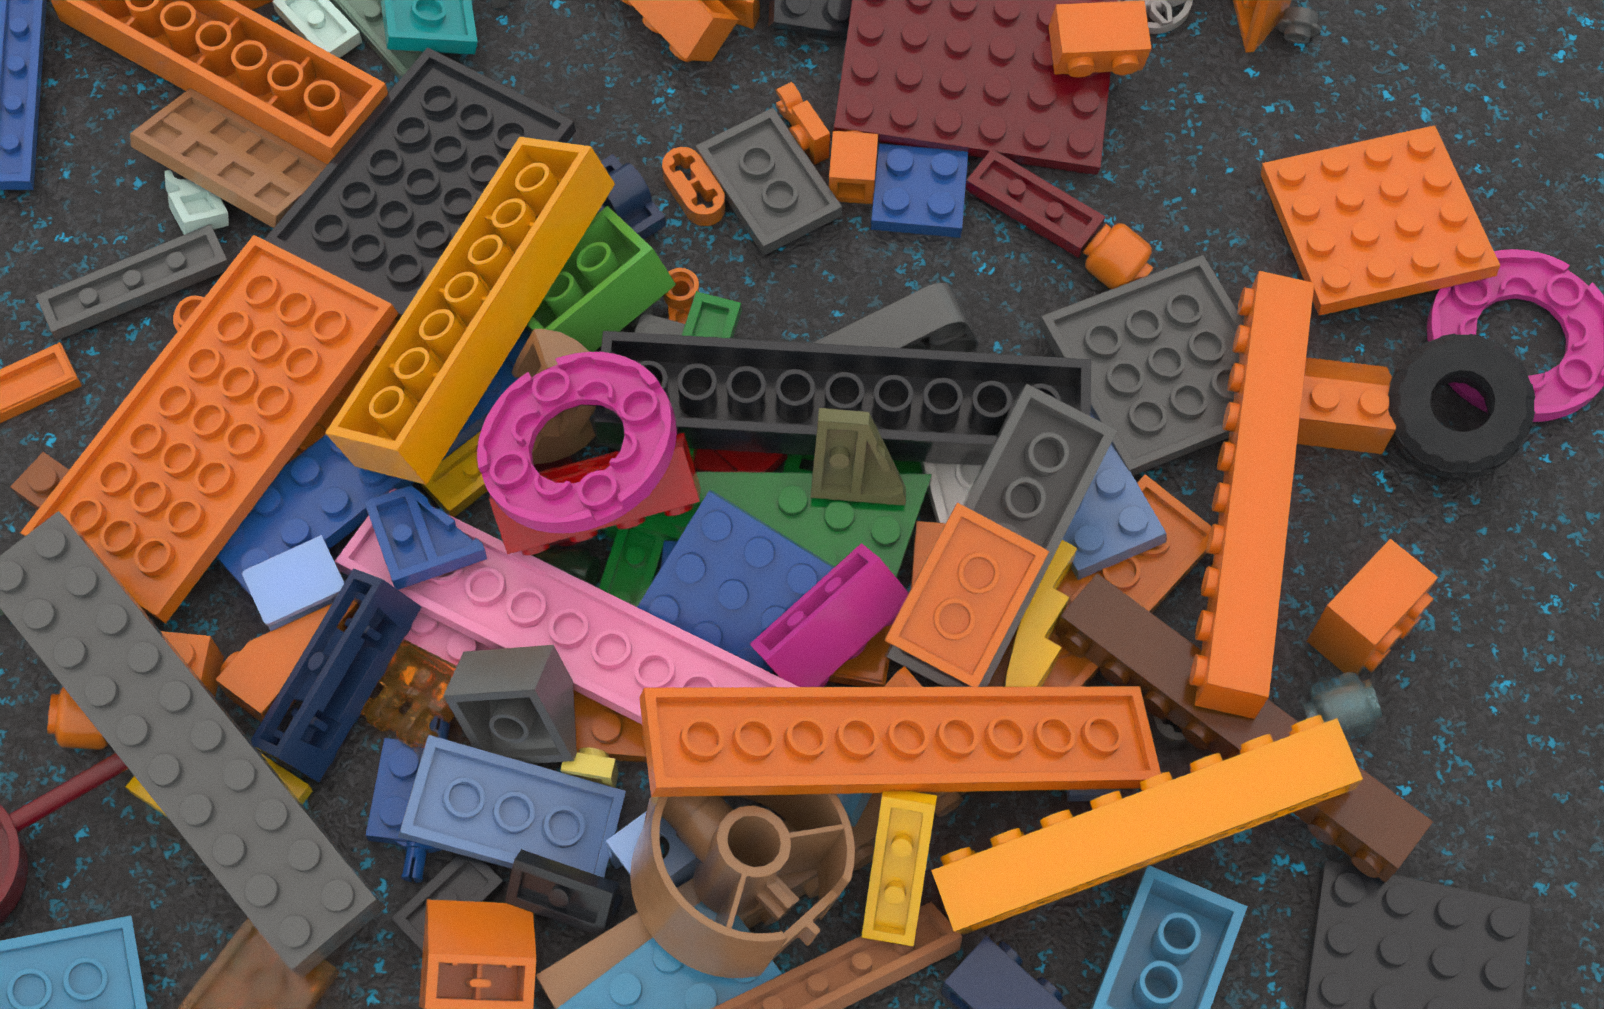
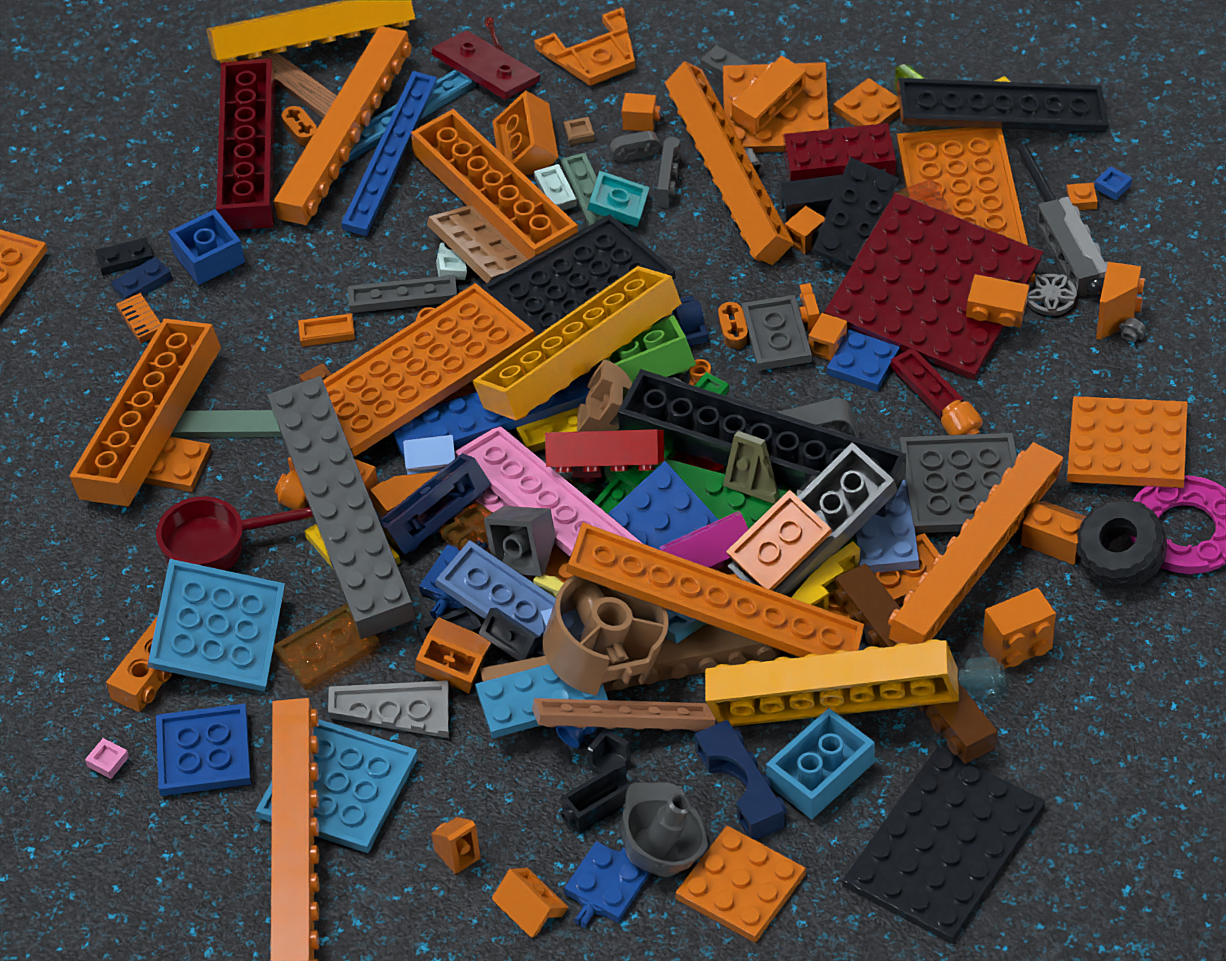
camera: 25 degrees right, 15 degrees down
(419, 539) = (503, 449): blue wing -> none
(602, 495) = (623, 387): dark pink plate -> none
(898, 866) = (689, 663): yellow plate -> none

